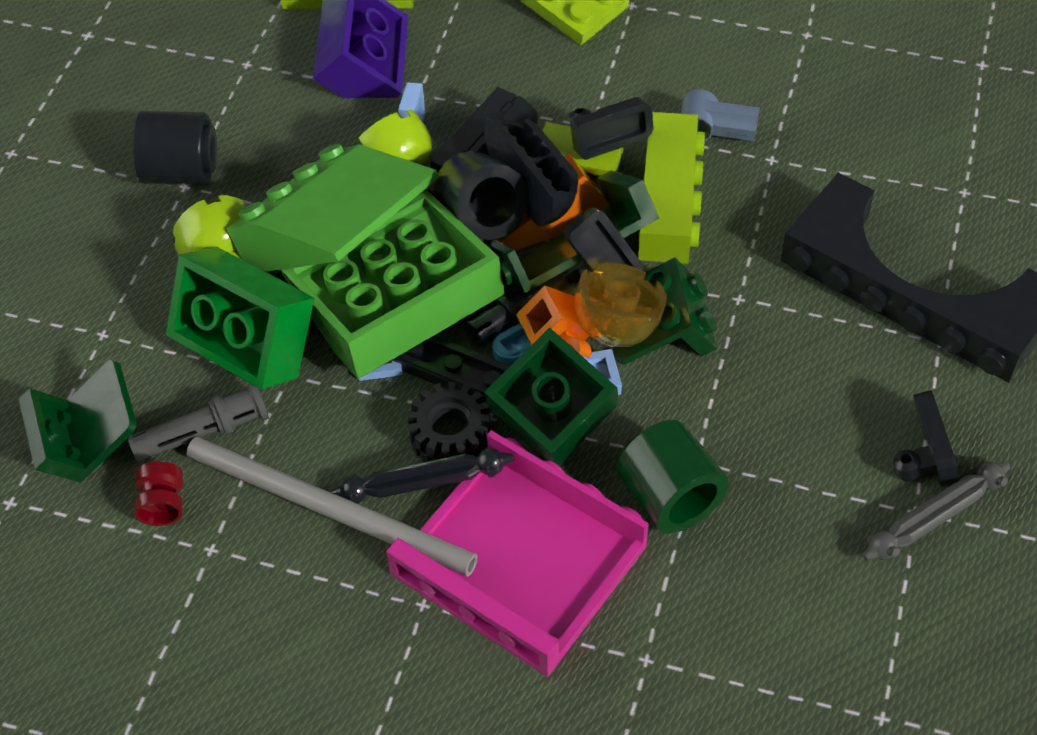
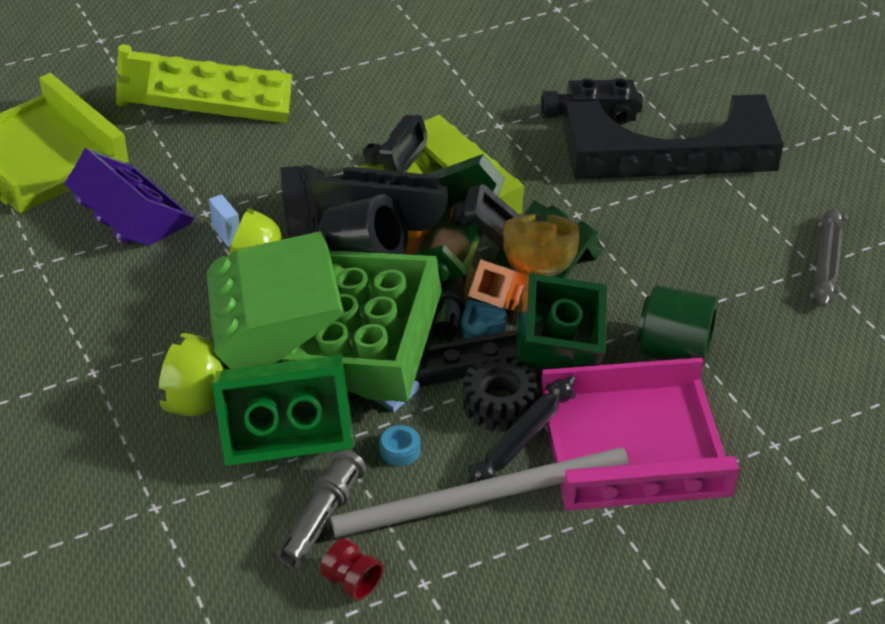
camera: 45 degrees left, 10 degrees down
(80, 432) = (239, 558): dark green bracket -> none
(174, 148) = (72, 340): black piece -> none
(324, 414) = (399, 445): none -> dark azure tile
(720, 117) = (455, 110): sand blue piece -> none
(899, 193) = (613, 96): none -> black brick
(936, 455) = (790, 218): black piece -> none

